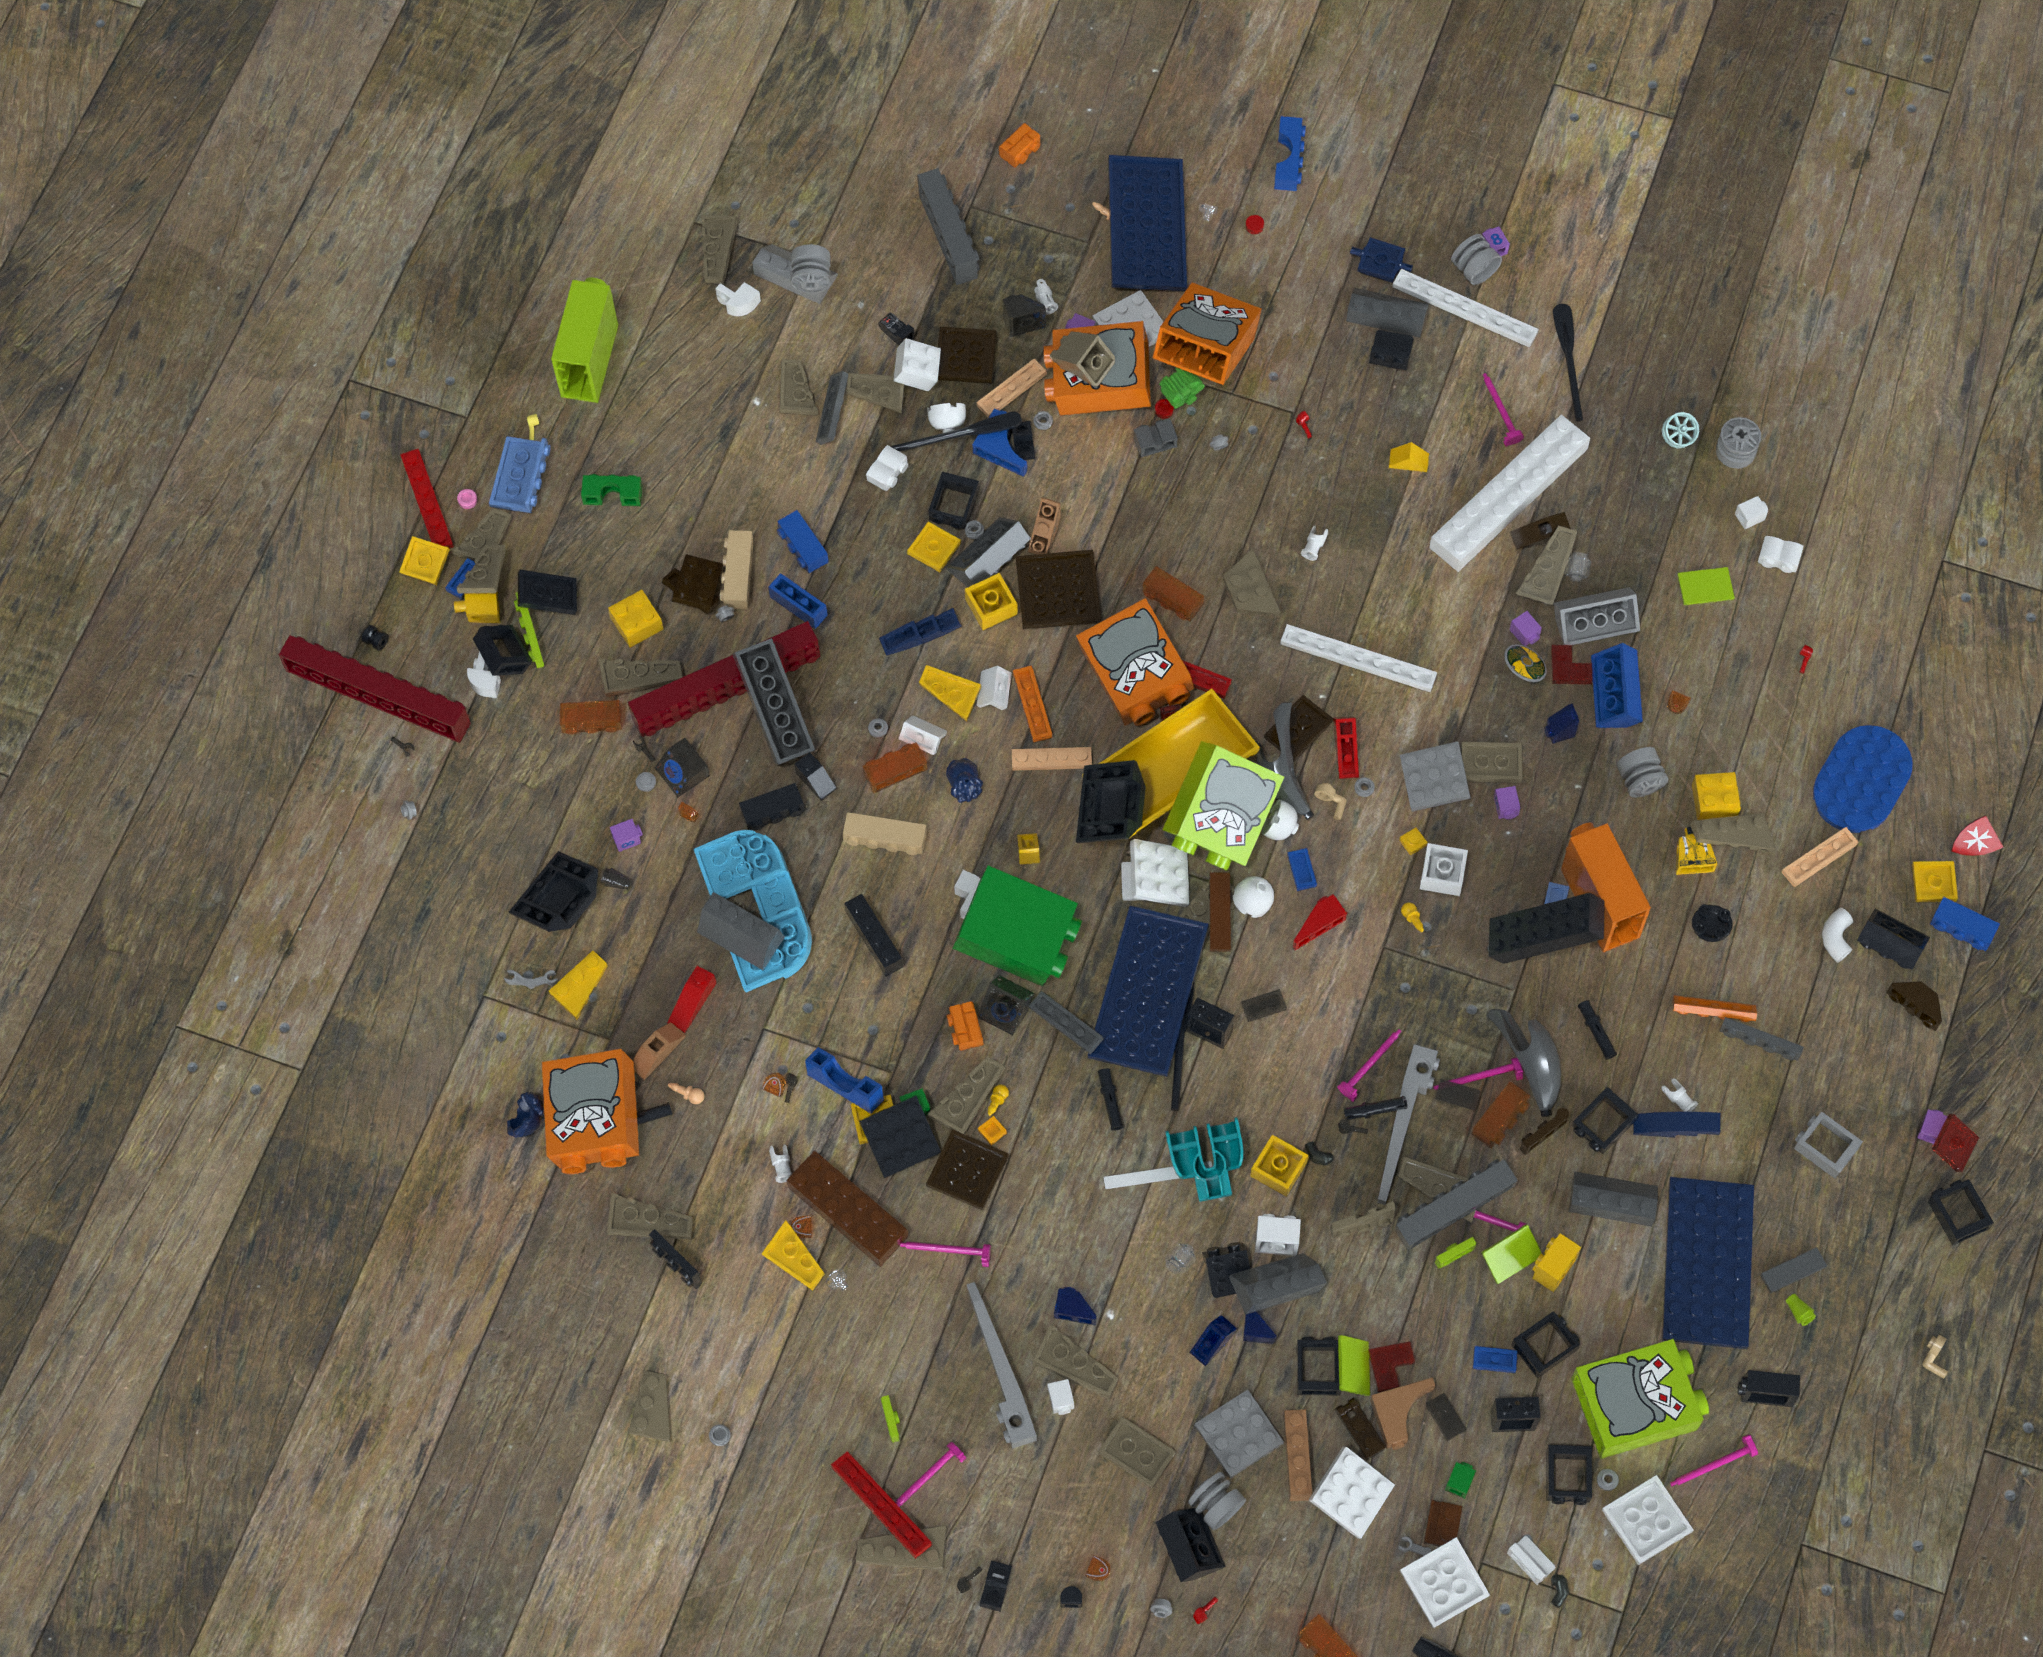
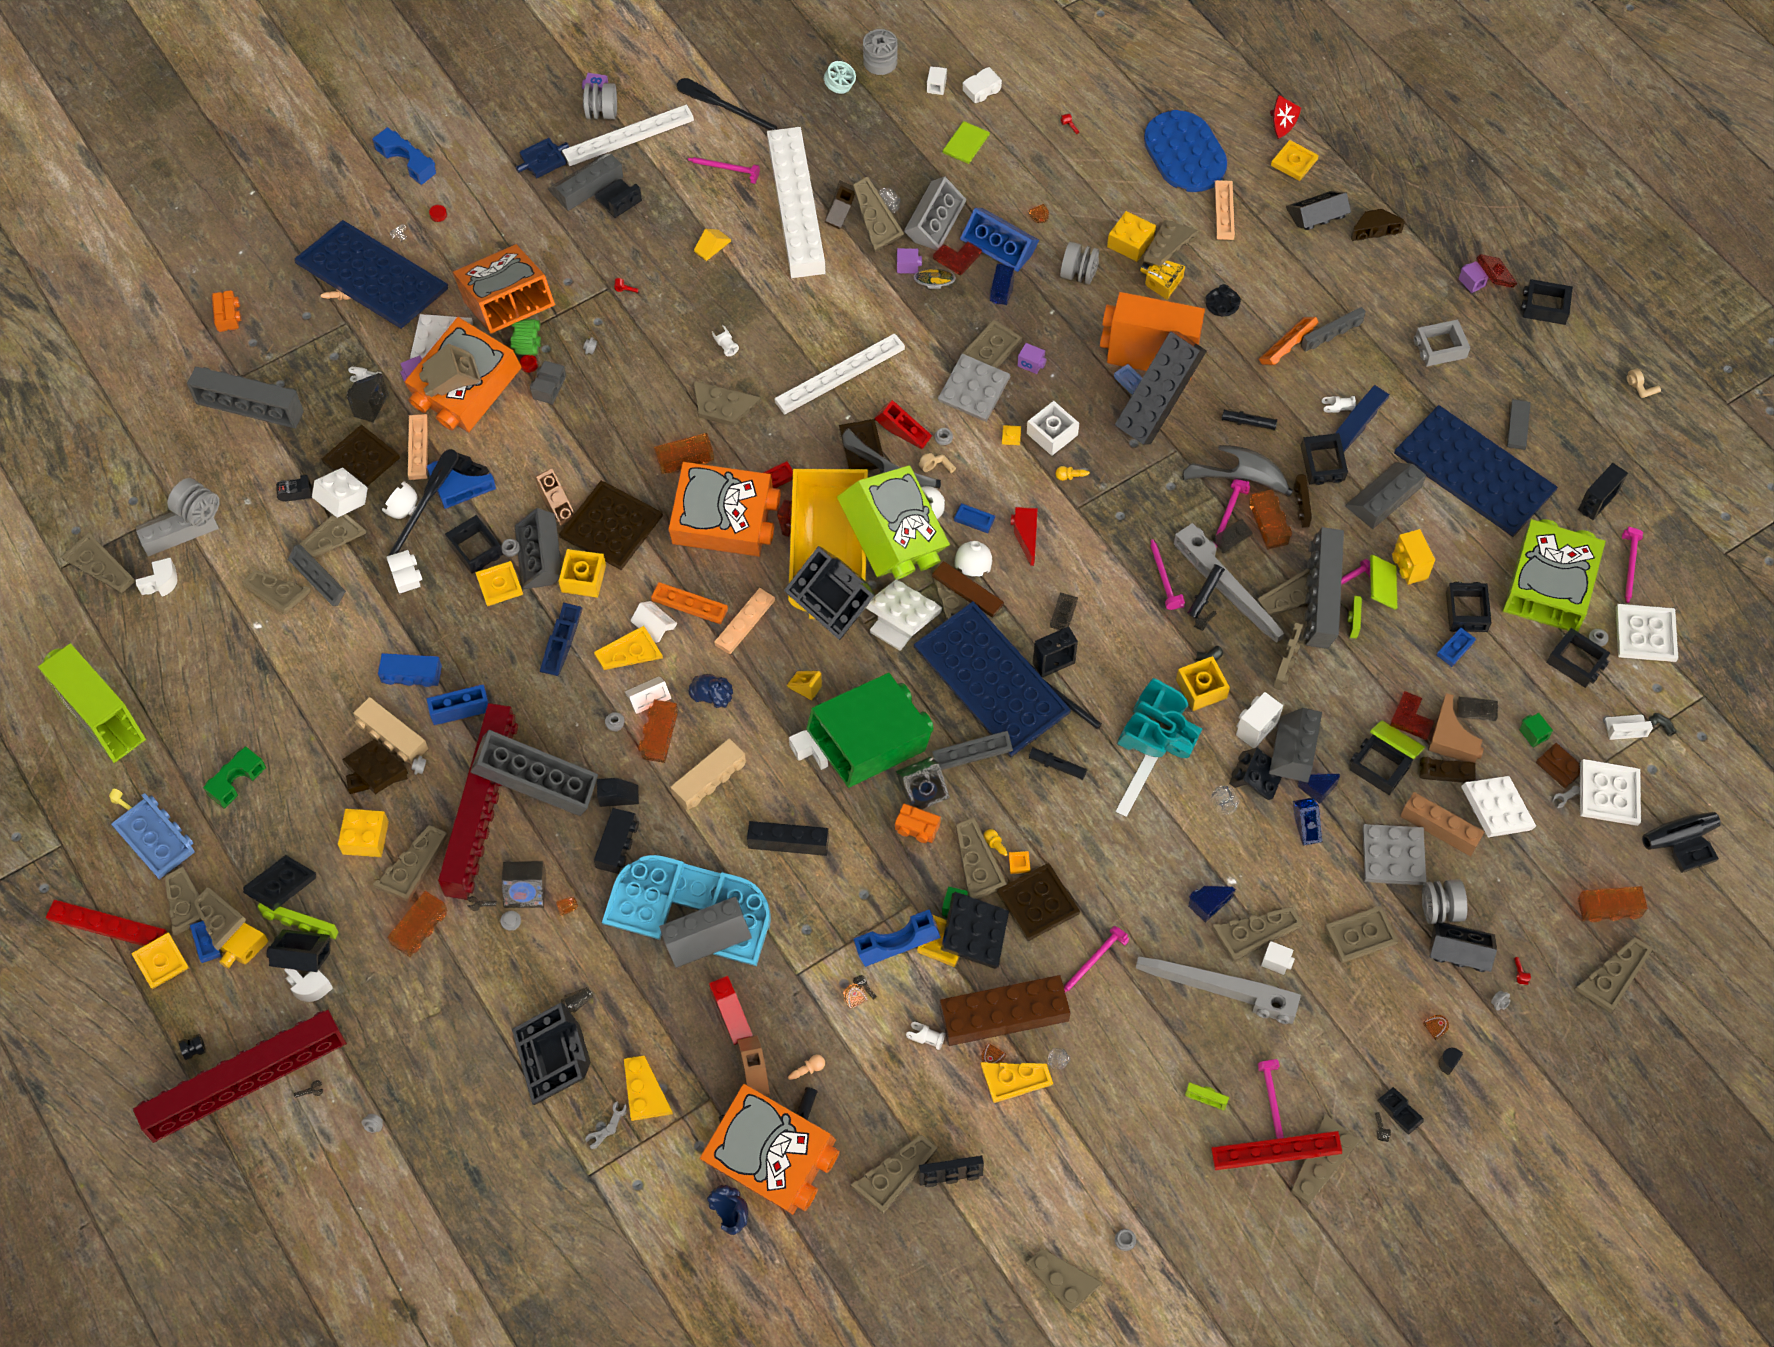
camera: 55 degrees left, 5 degrees down
(467, 499) = (135, 892): bright pink tile -> none
(626, 835) = (545, 965): medium lavender brick -> none
(1043, 415) = (463, 440): light grey plate -> none
(1510, 1417) = (1514, 658): black window -> none
(1801, 1311) = (1553, 438): lime cone -> none
(1833, 934) = (1288, 239): white cylinder -> none
(1964, 924) = (1339, 164): blue brick -> none

